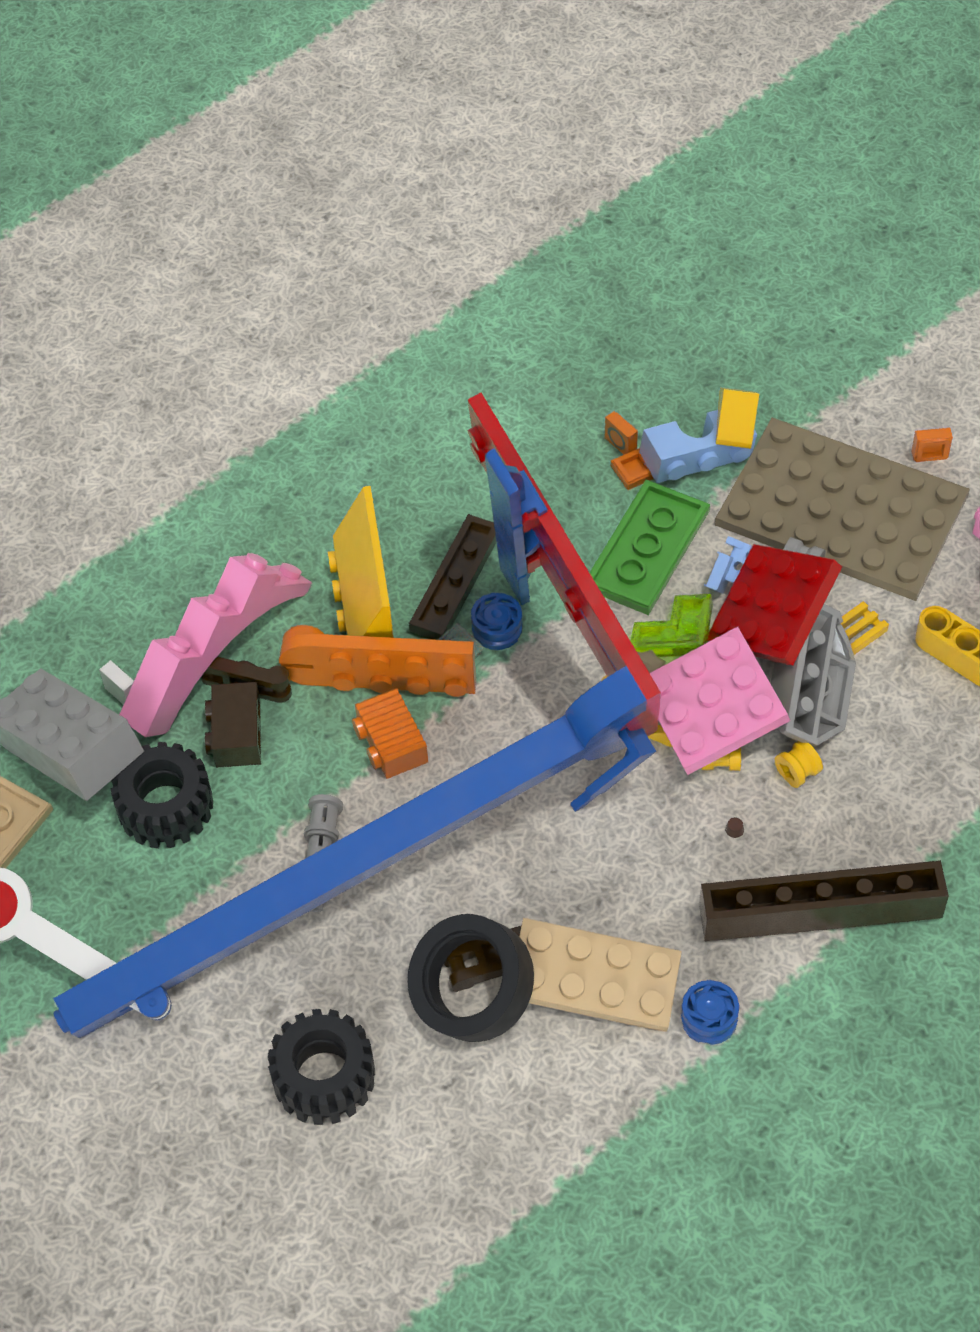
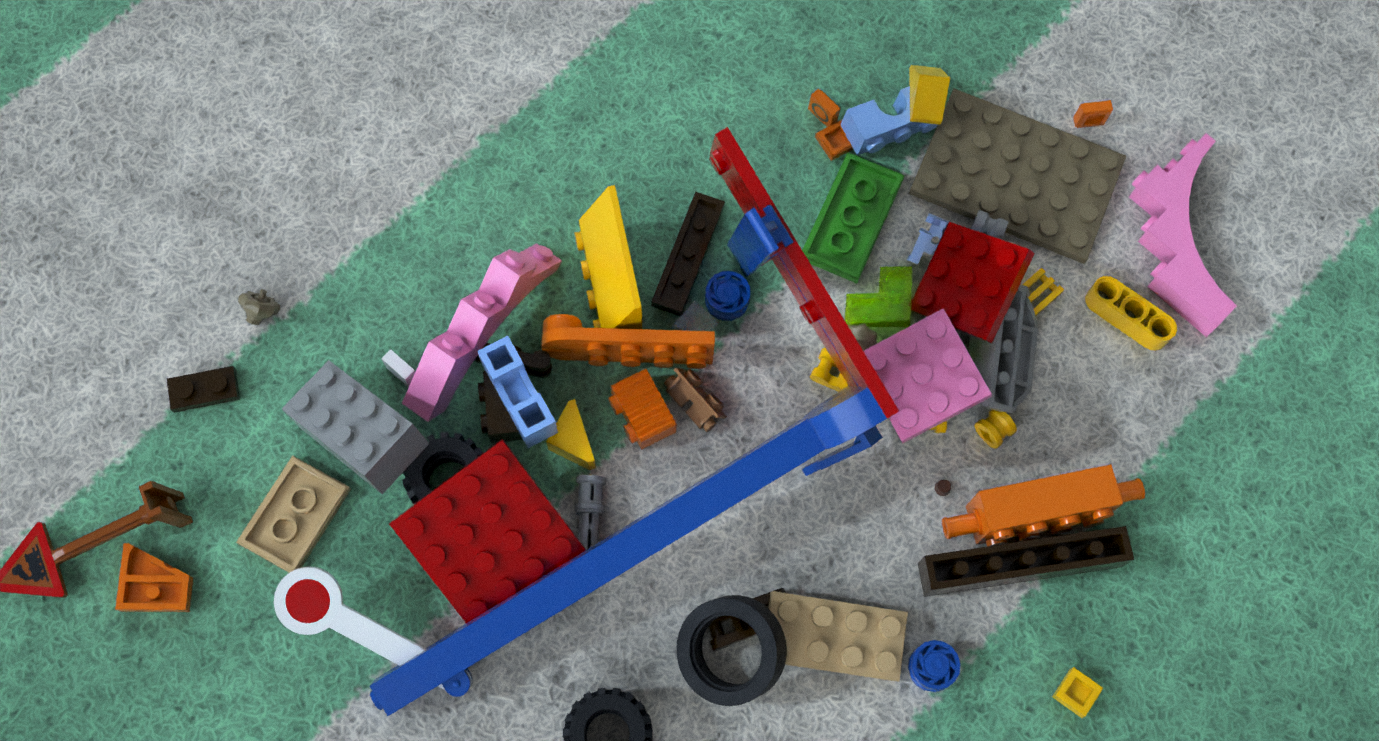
camera: 10 degrees left, 15 degrees up
(196, 840) = (486, 533): none -> red plate
(244, 697) = (517, 392): none -> light blue arch
(304, 761) = (571, 438): none -> yellow slope
(442, 714) = (687, 388): none -> medium nougat hinge
(847, 835) = (1043, 505): none -> orange brick
(880, 1047) = (1077, 692): none -> yellow plate

